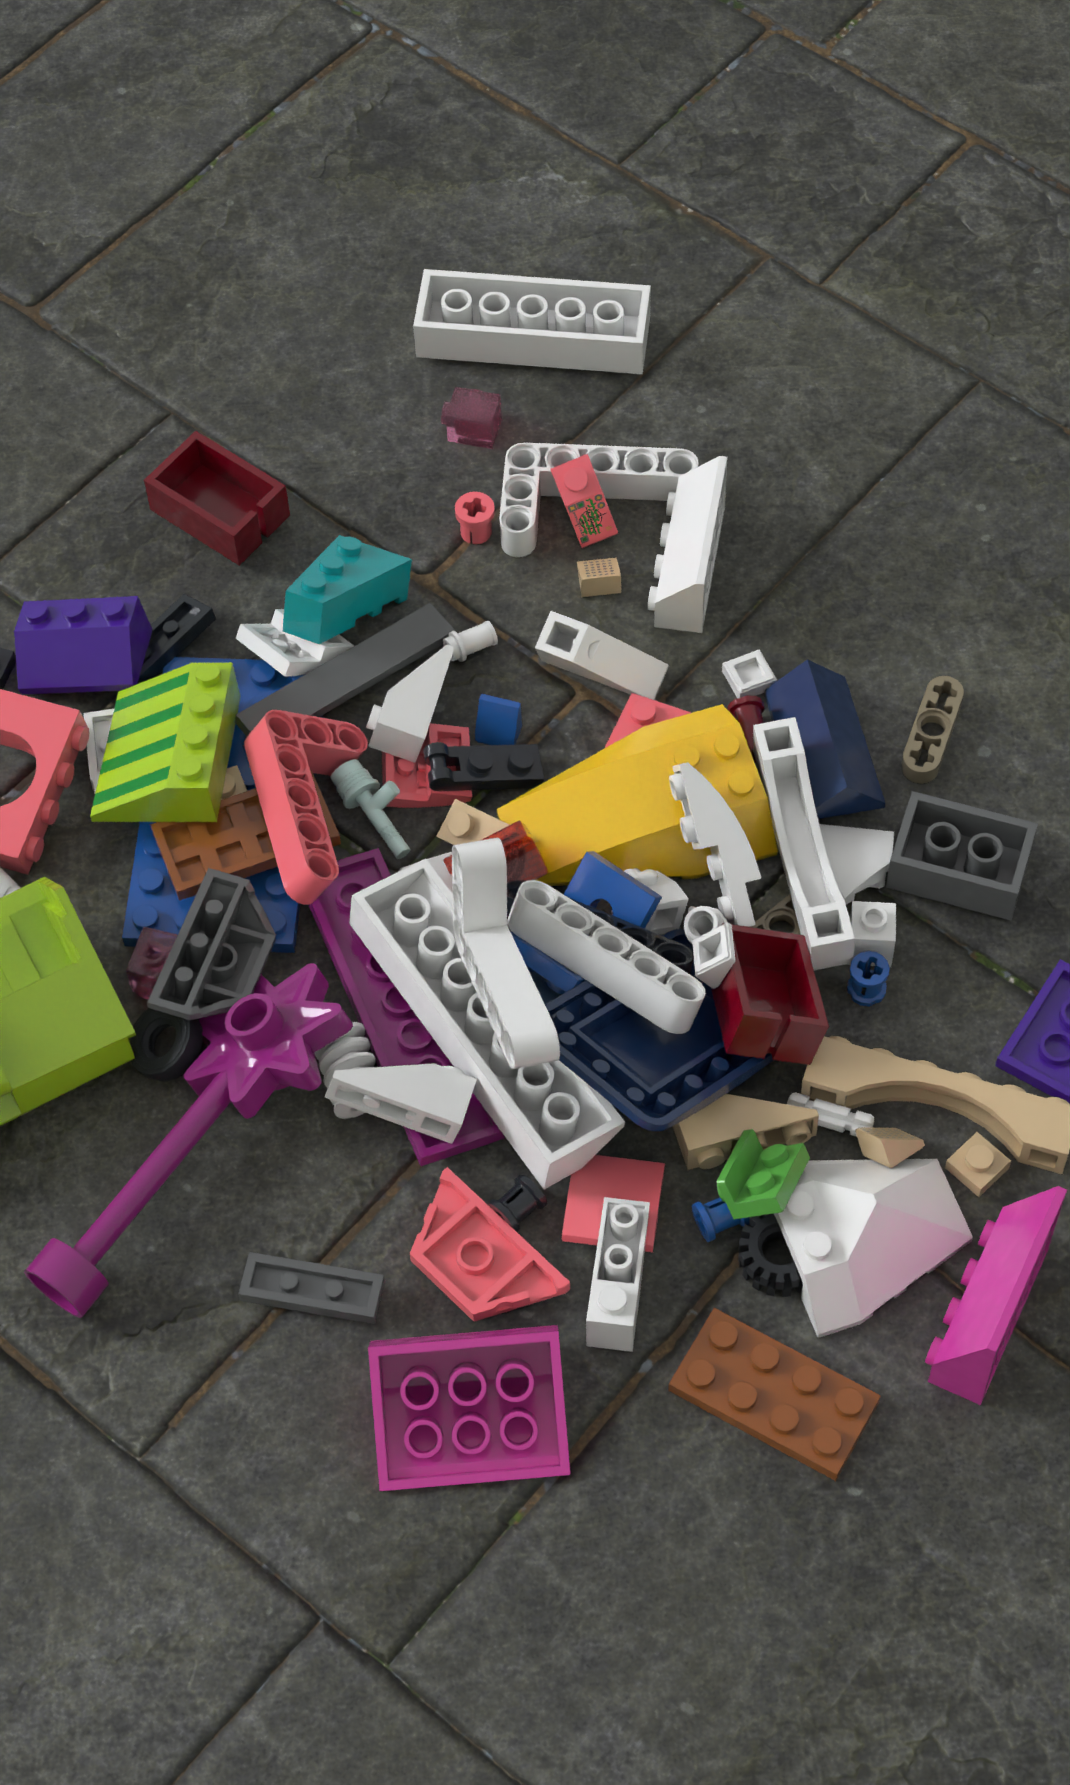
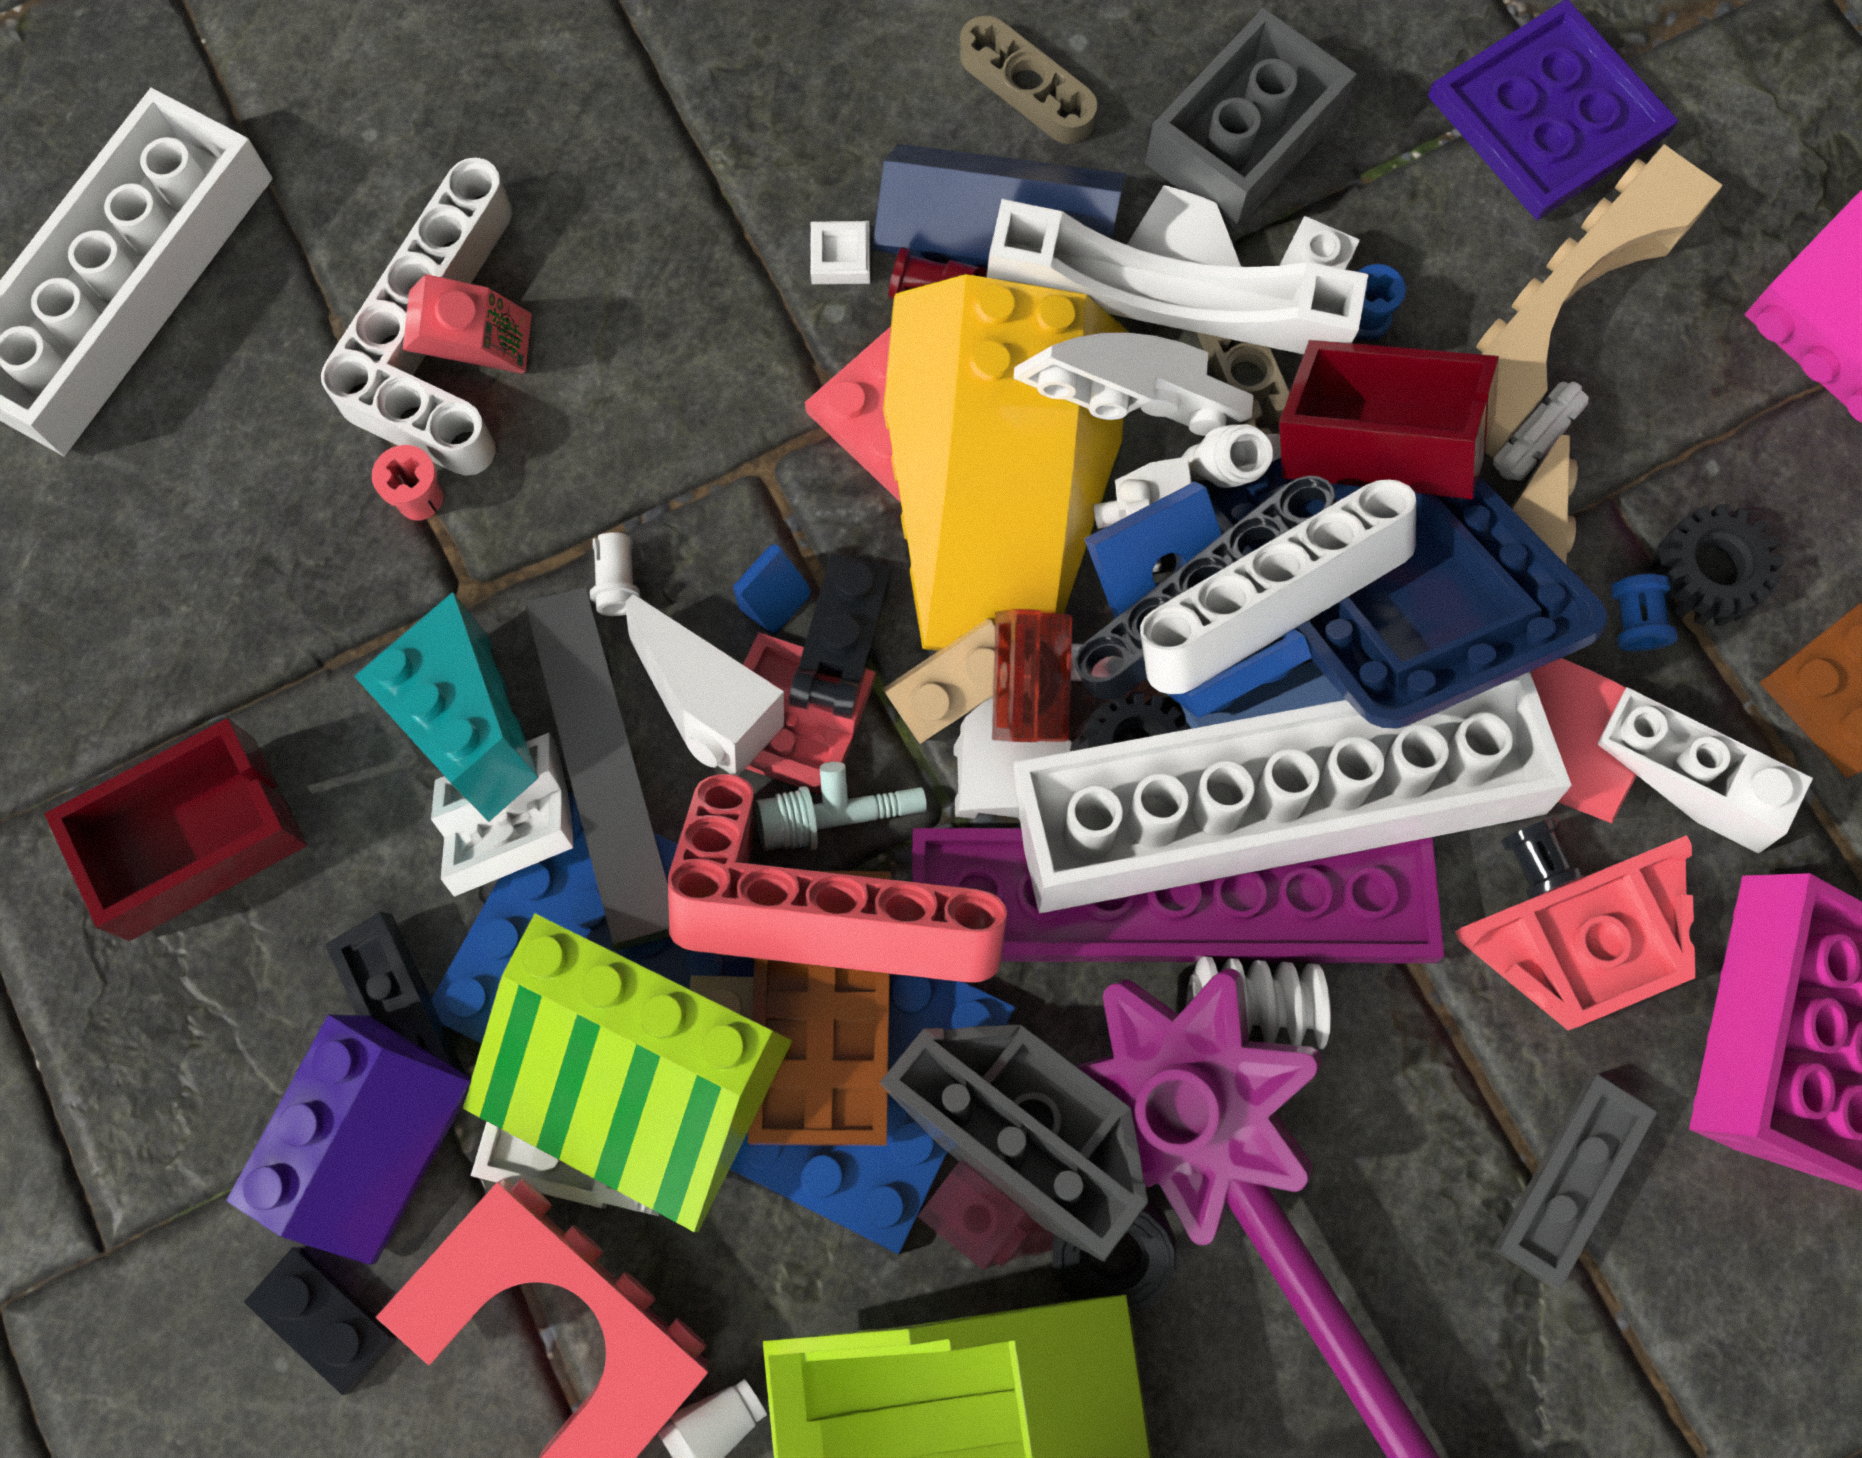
camera: 70 degrees left, 15 degrees up
(414, 1096) = (1375, 926): white slope -> none
(472, 417) = (226, 419): clear pink brick -> none
(493, 957) = (1302, 726): white beam -> none
(599, 577) = (587, 367): tan slope -> none
(599, 656) = (734, 417): white slope -> none
(690, 548) = (616, 223): white slope -> none
(714, 955) = (1332, 445): white slope -> none
(758, 1178) = (1654, 531): bright green bracket -> none
(867, 1234) = (1704, 462): white wedge -> none
(887, 1145) = (1617, 378): tan slope -> none
(977, 1164) = (1663, 297): tan plate -> none

